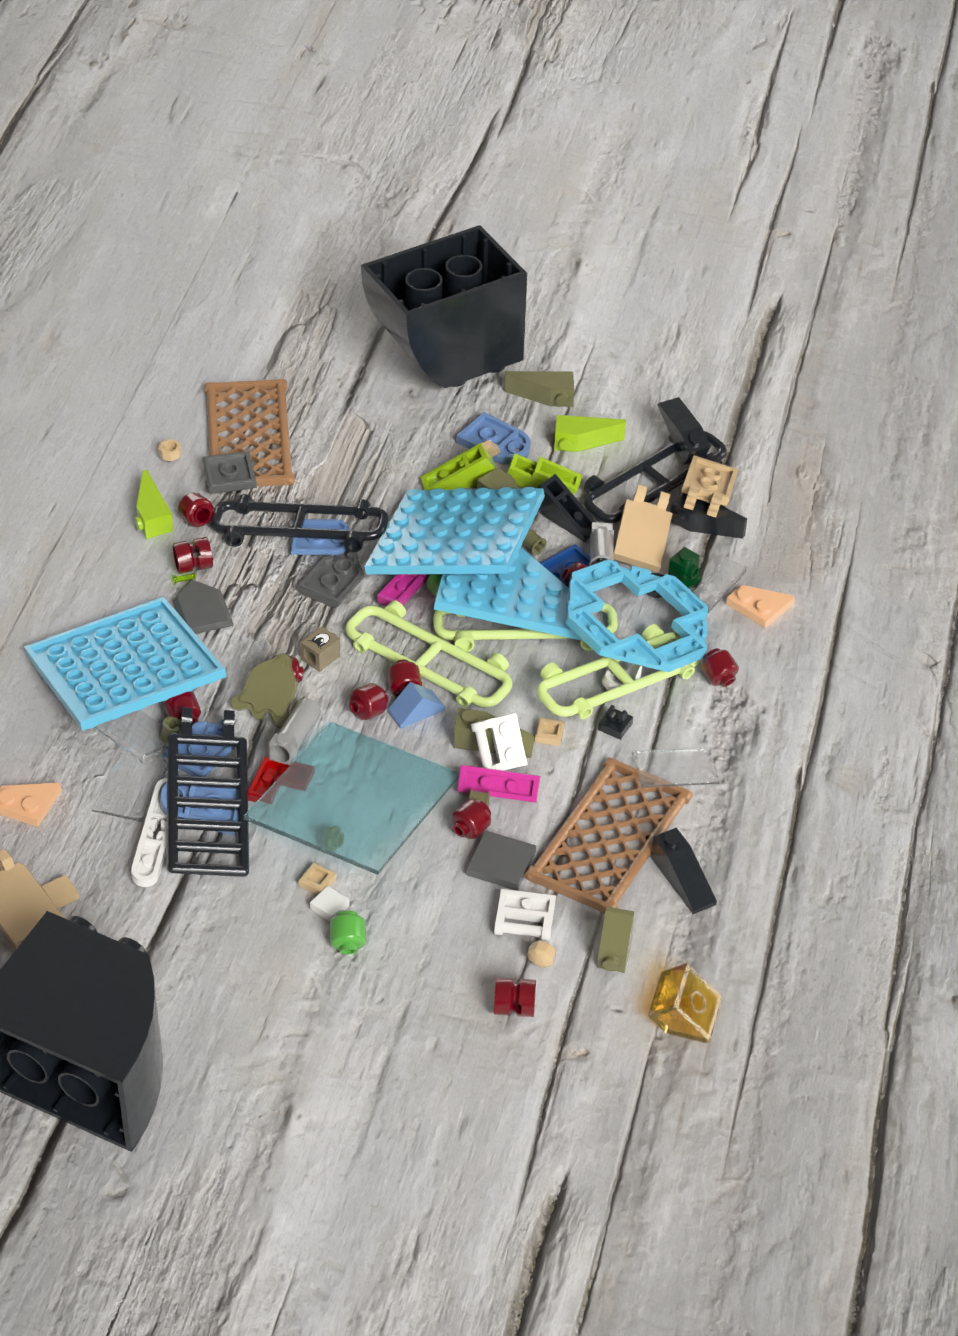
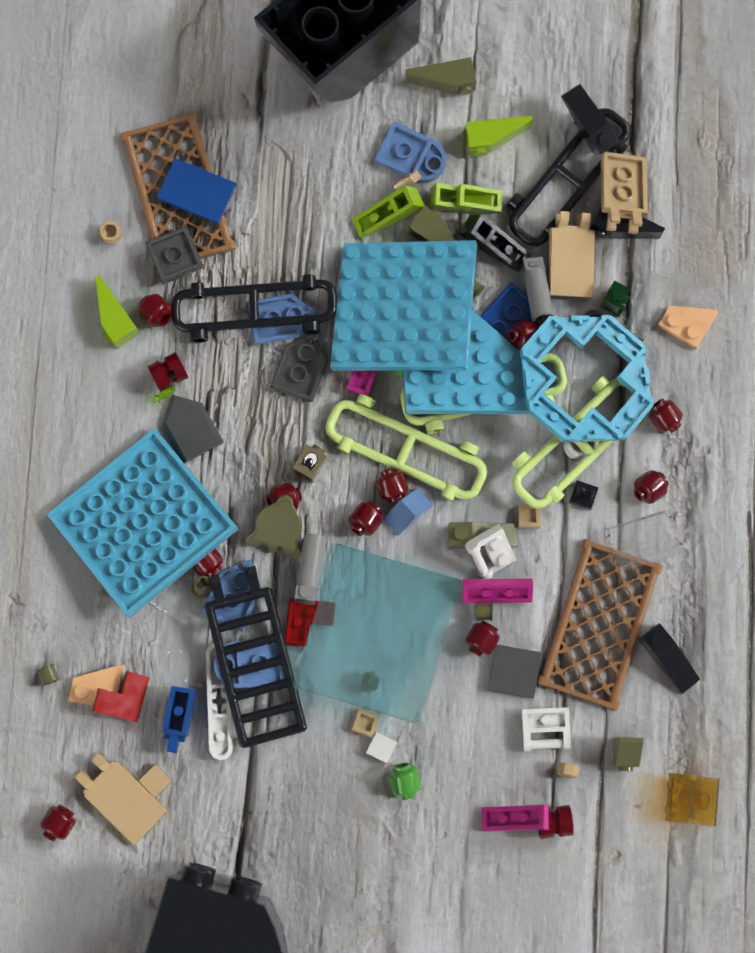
camera: 10 degrees left, 35 degrees up
(46, 814) = (126, 703): none -> red tile
(107, 829) = (178, 716): none -> blue hinge
(268, 430) = (196, 191): none -> blue tile
(468, 978) = (515, 818): none -> dark pink plate
(691, 722) = (651, 487): none -> dark red head

